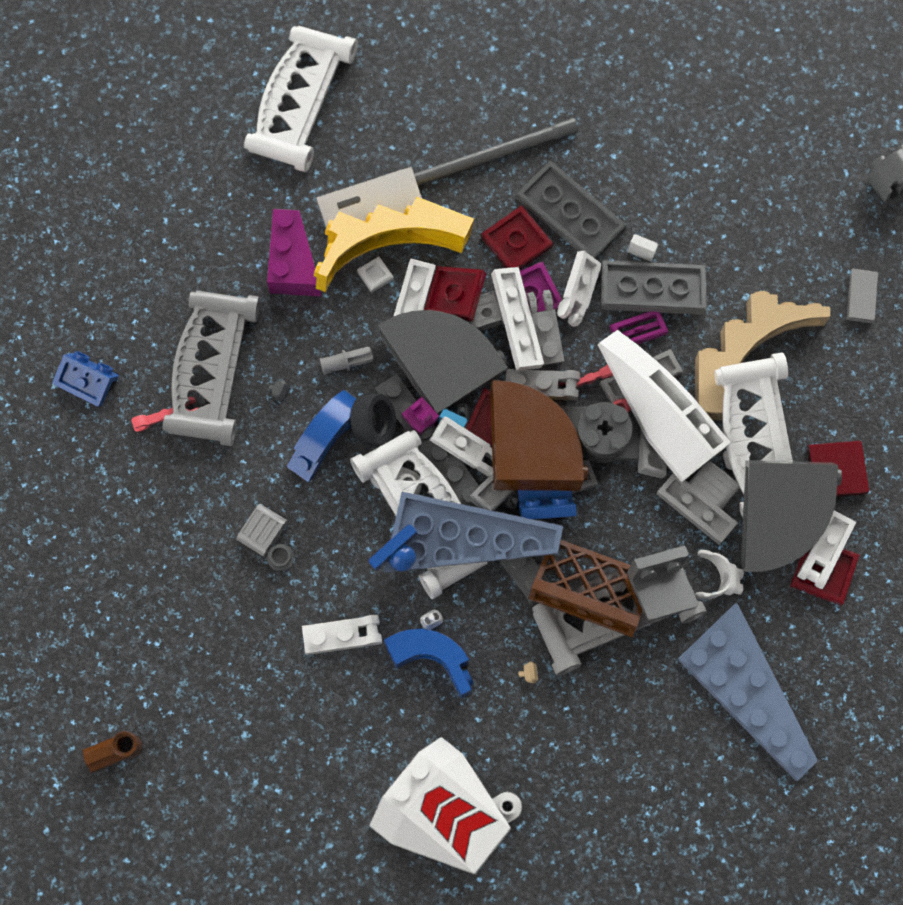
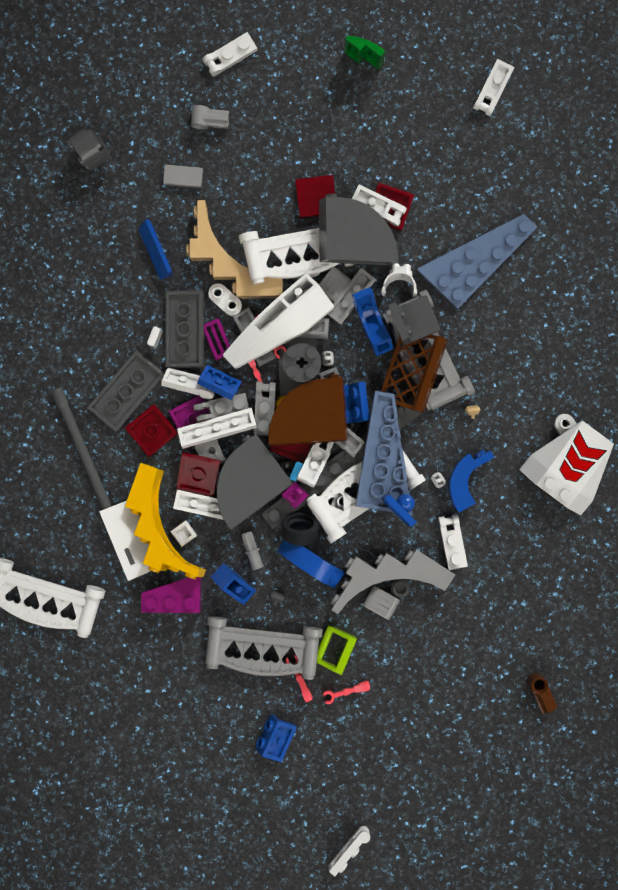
camera: 90 degrees left, 15 degrees up
(144, 494) = (361, 687): none -> coral piece
(195, 476) = (345, 653): none -> lime tile
(302, 332) = (233, 584): none -> blue slope
(308, 580) = (388, 568): none -> light grey arch
(579, 324) = (219, 382): none -> blue bracket
(609, 474) = (327, 358): none -> white rock
(661, 533) = (371, 321): none -> blue arch
(694, 341) = (225, 299): none -> white plate
(761, 256) = (155, 250): none -> blue slope

